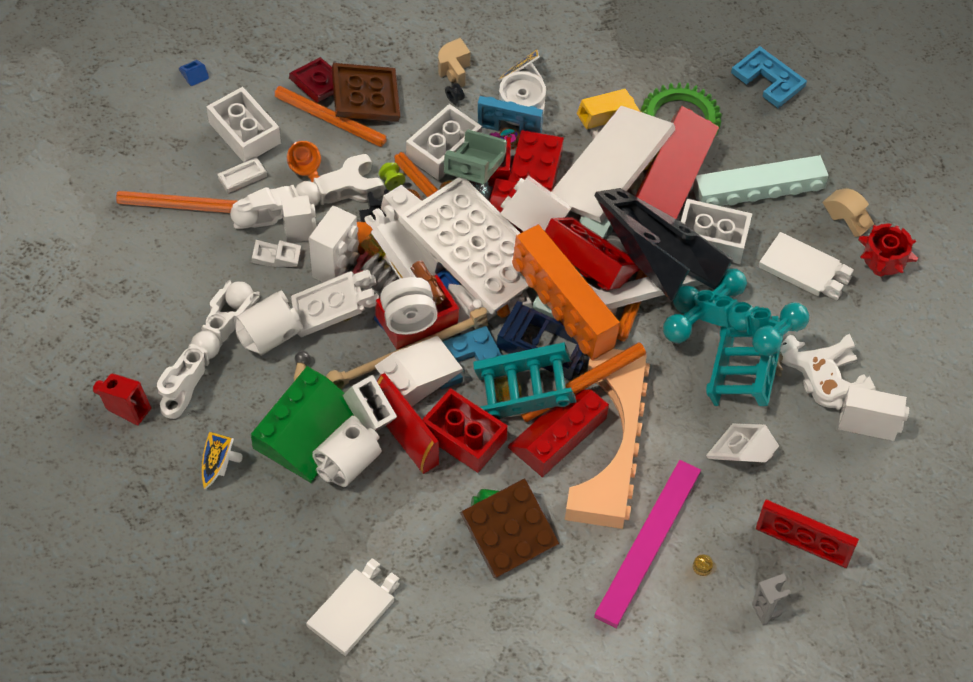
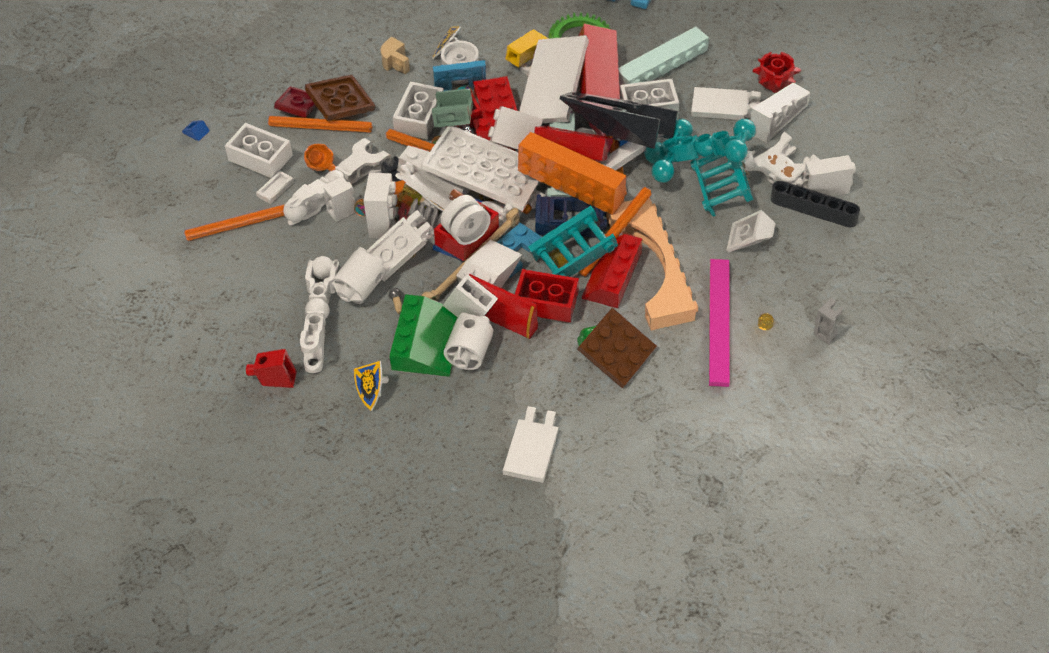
camera: 20 degrees left, 5 degrees down
(279, 255) = (336, 231): white slope -> none
(390, 174) = (389, 146): lime wheel -> none
(454, 93) = (406, 76): black bush -> none
(806, 533) = (828, 270): red tile -> none
(847, 449) = (815, 204): none -> black beam
(851, 207) = (735, 52): tan brick -> none
(861, 302) = (778, 111): none -> white wedge

